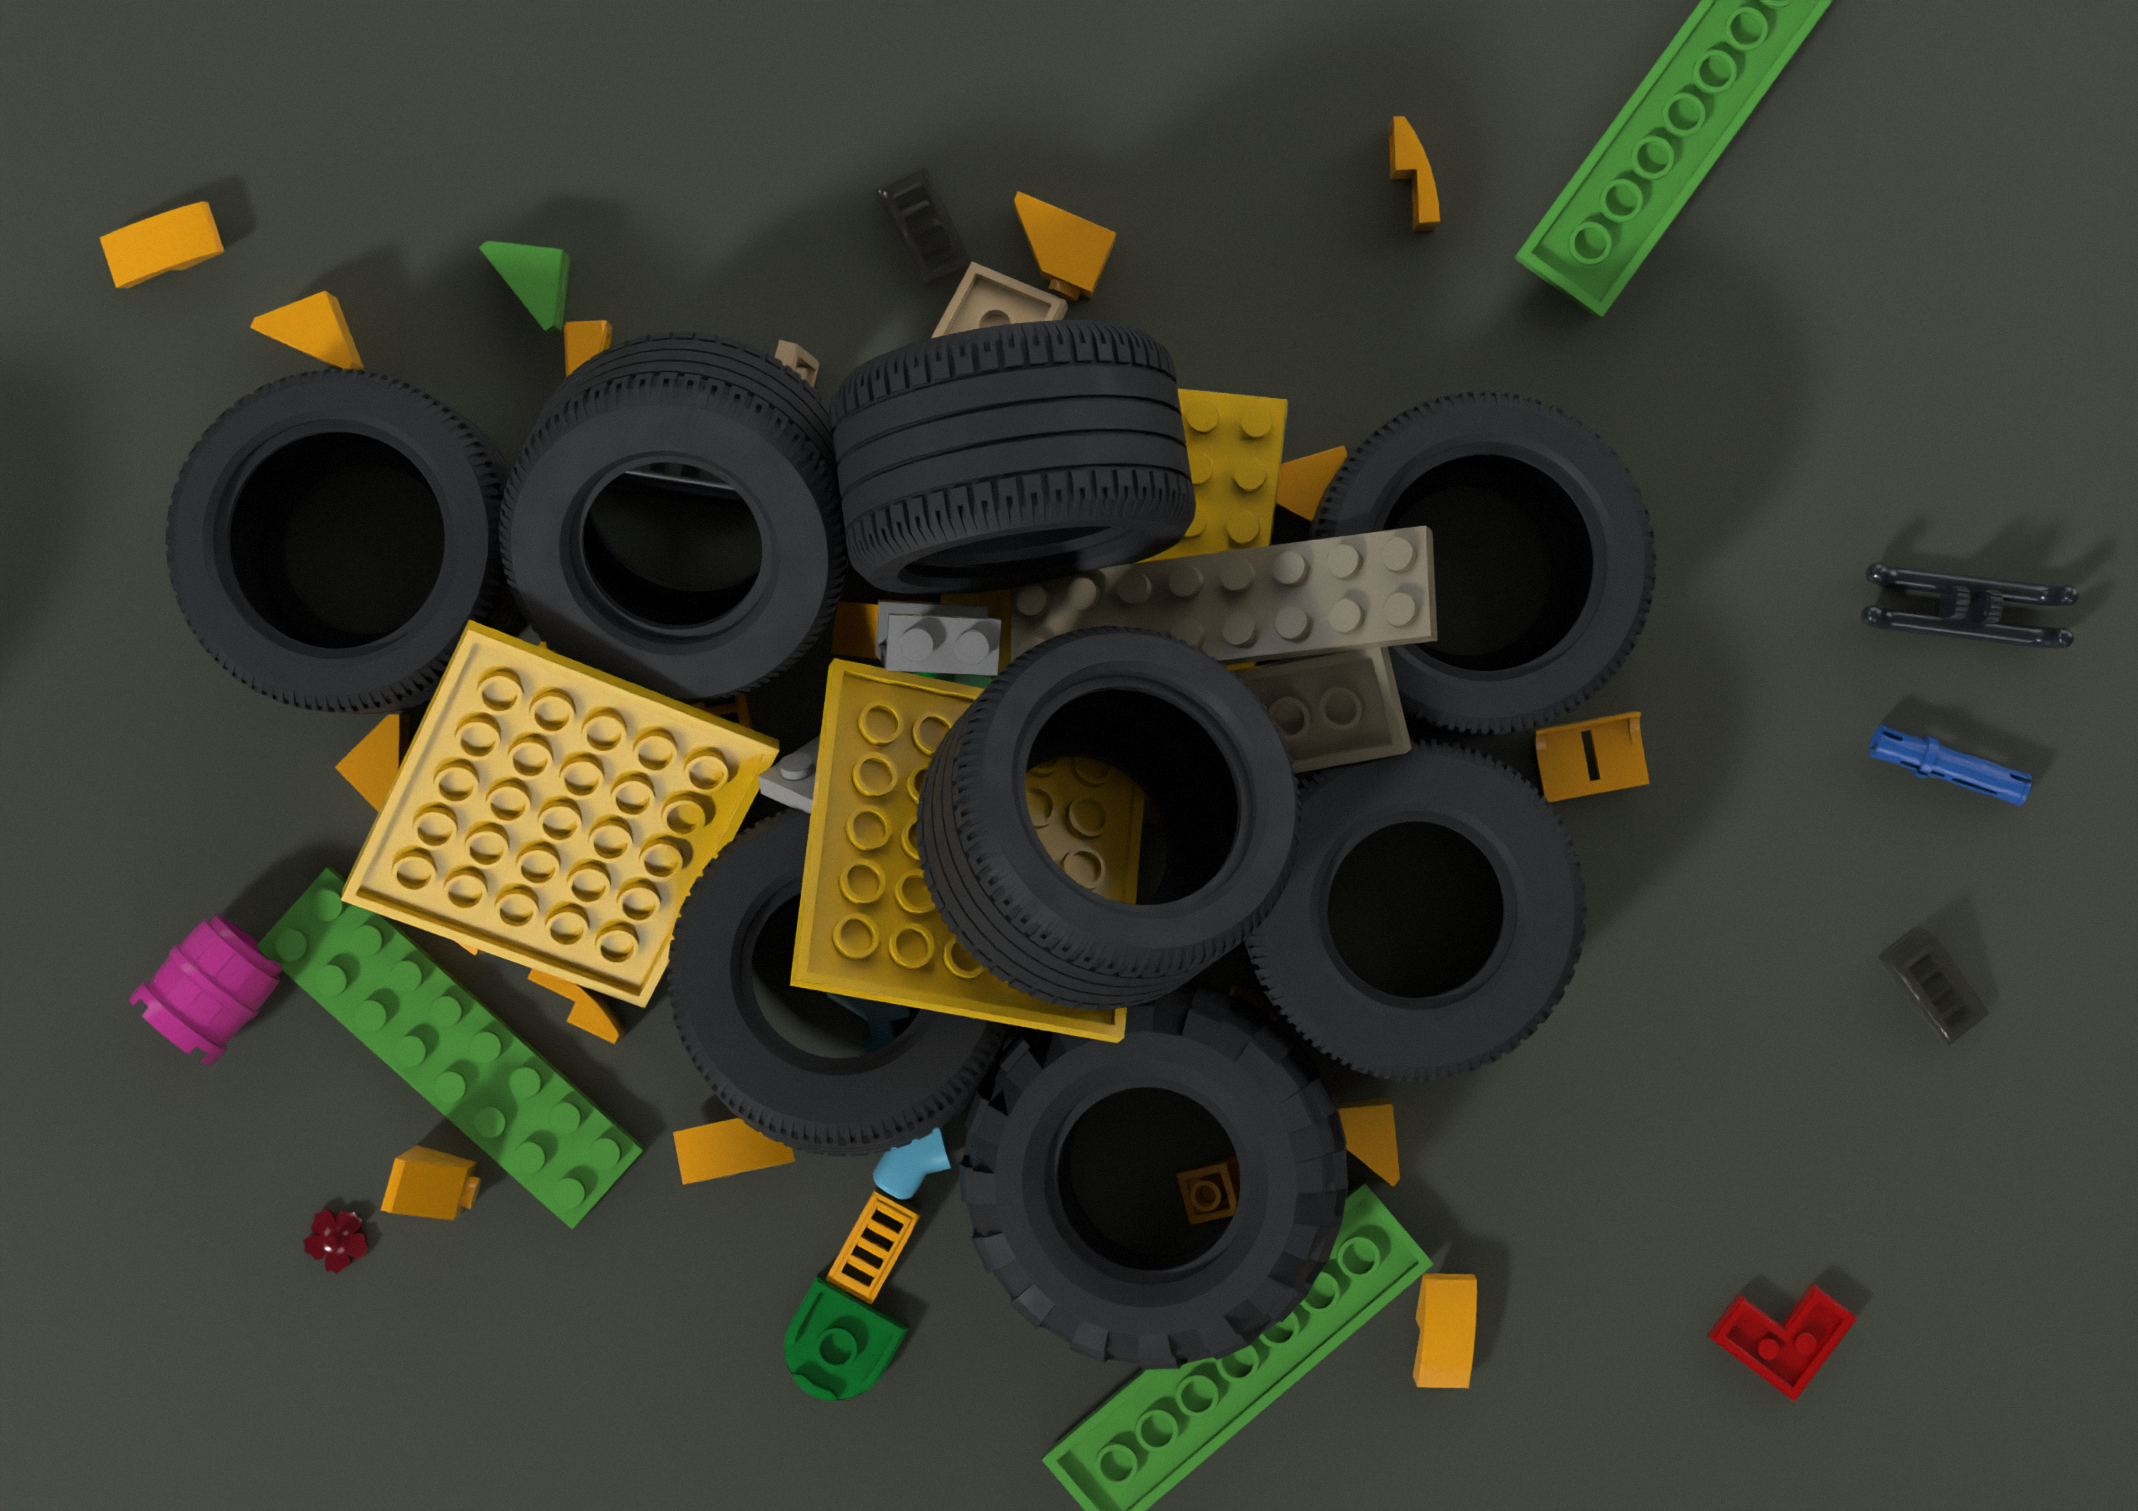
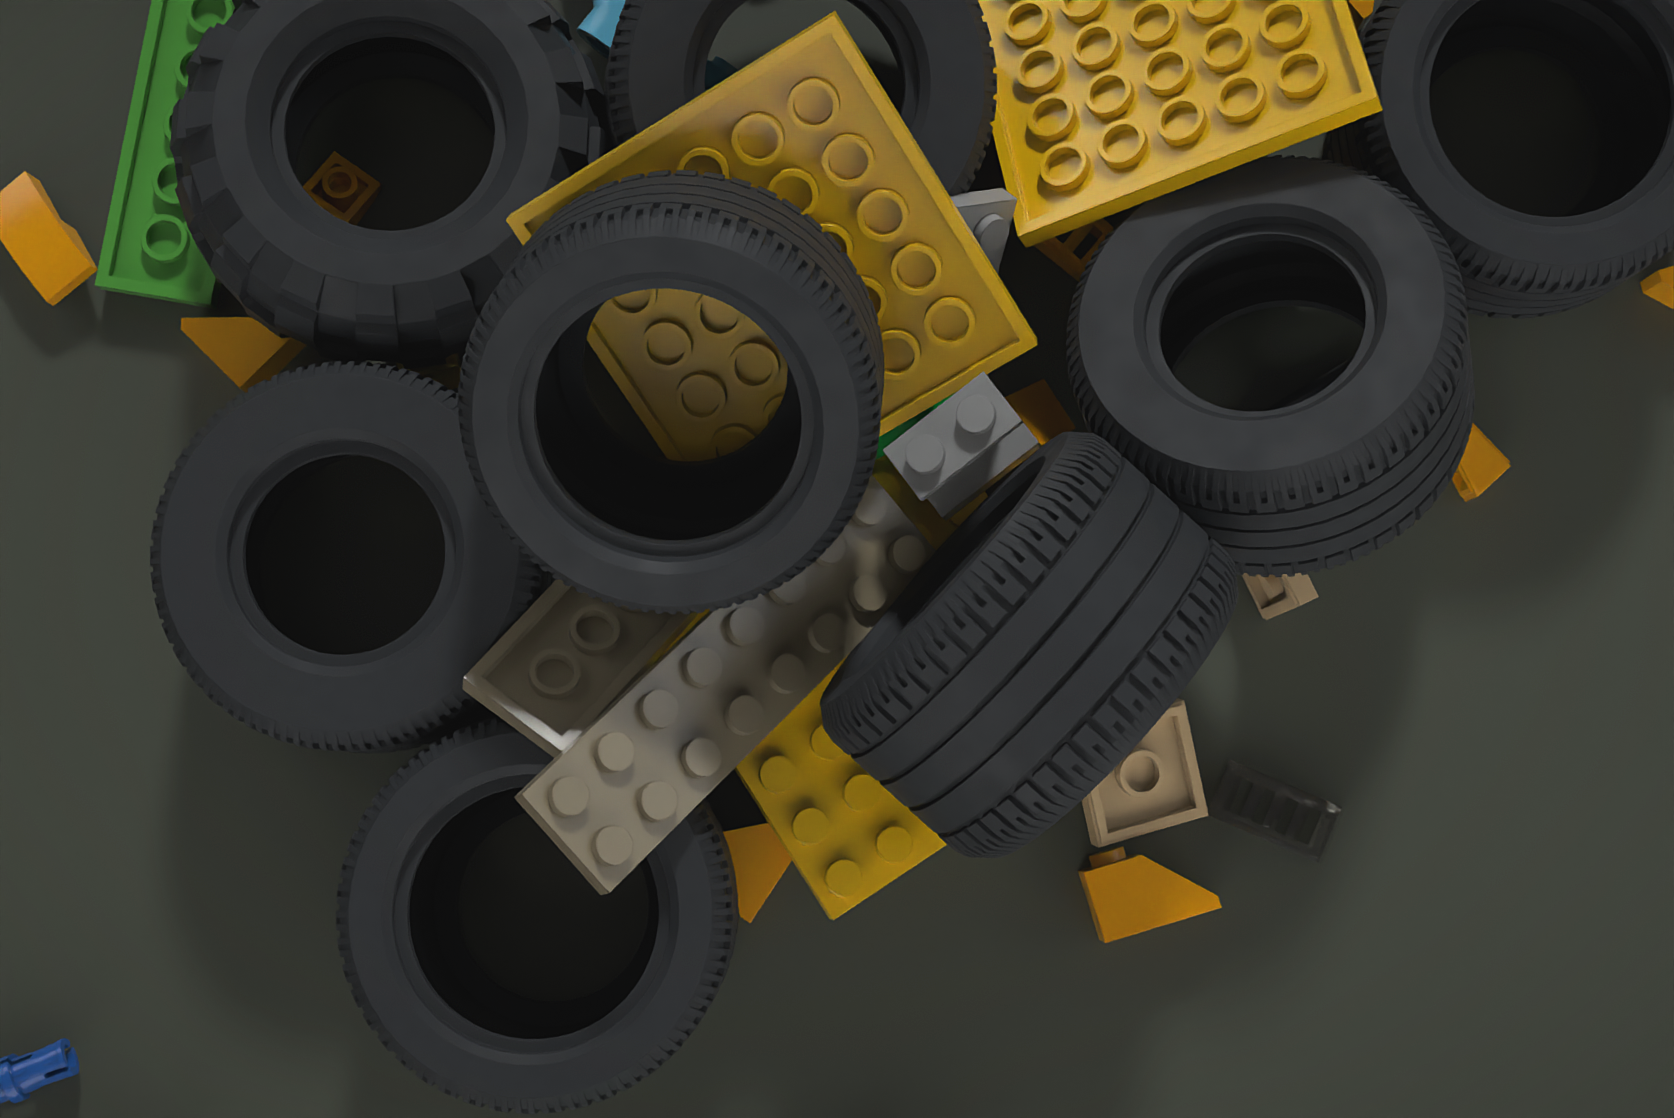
camera: 145 degrees right, 5 degrees down
(536, 277) = (1566, 484): bright green slope -> none
(1616, 752) = (289, 853): light orange piece -> none

